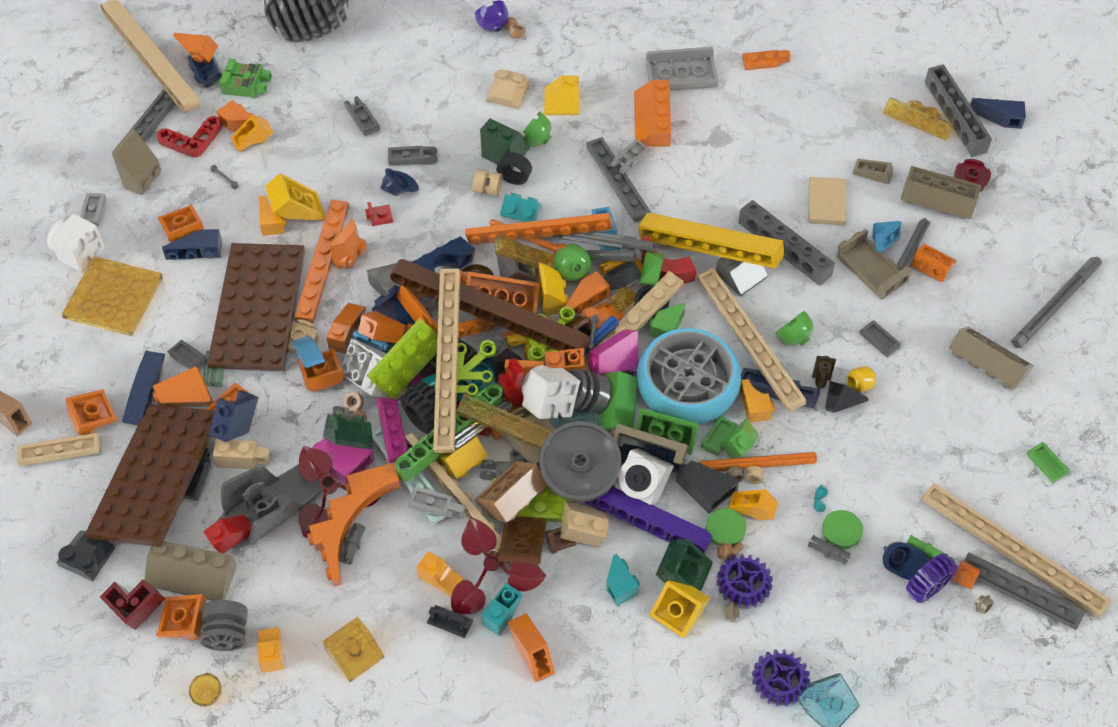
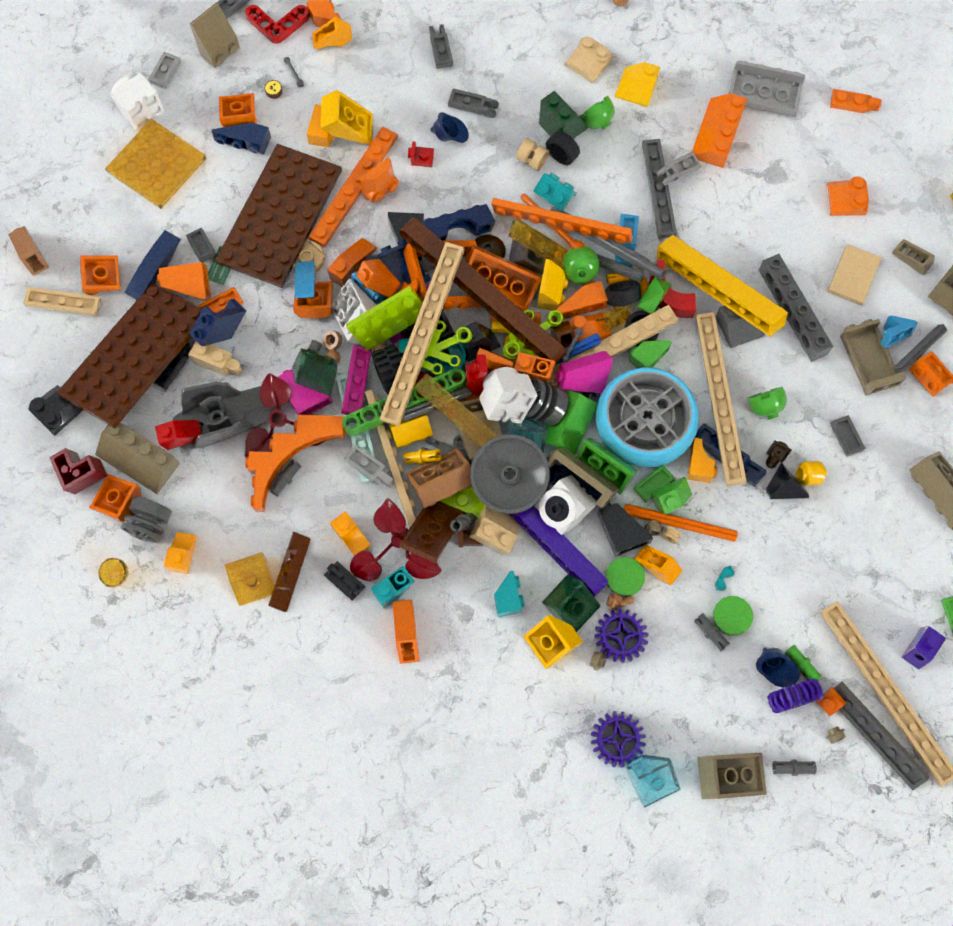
camera: 20 degrees right, 15 degrees up
(209, 197) = (273, 89): none -> tile
(390, 630) = (289, 572): none -> reddish brown bracket
(485, 478) = (422, 456): none -> yellow pin
(549, 524) = (463, 522): none -> dark grey pin
(794, 138) = (848, 197): none -> orange slope
(902, 674) = (731, 775): none -> dark tan slope
(958, 646) = (794, 767): none -> dark grey pin
(1030, 490) = (925, 643): none -> dark purple torso

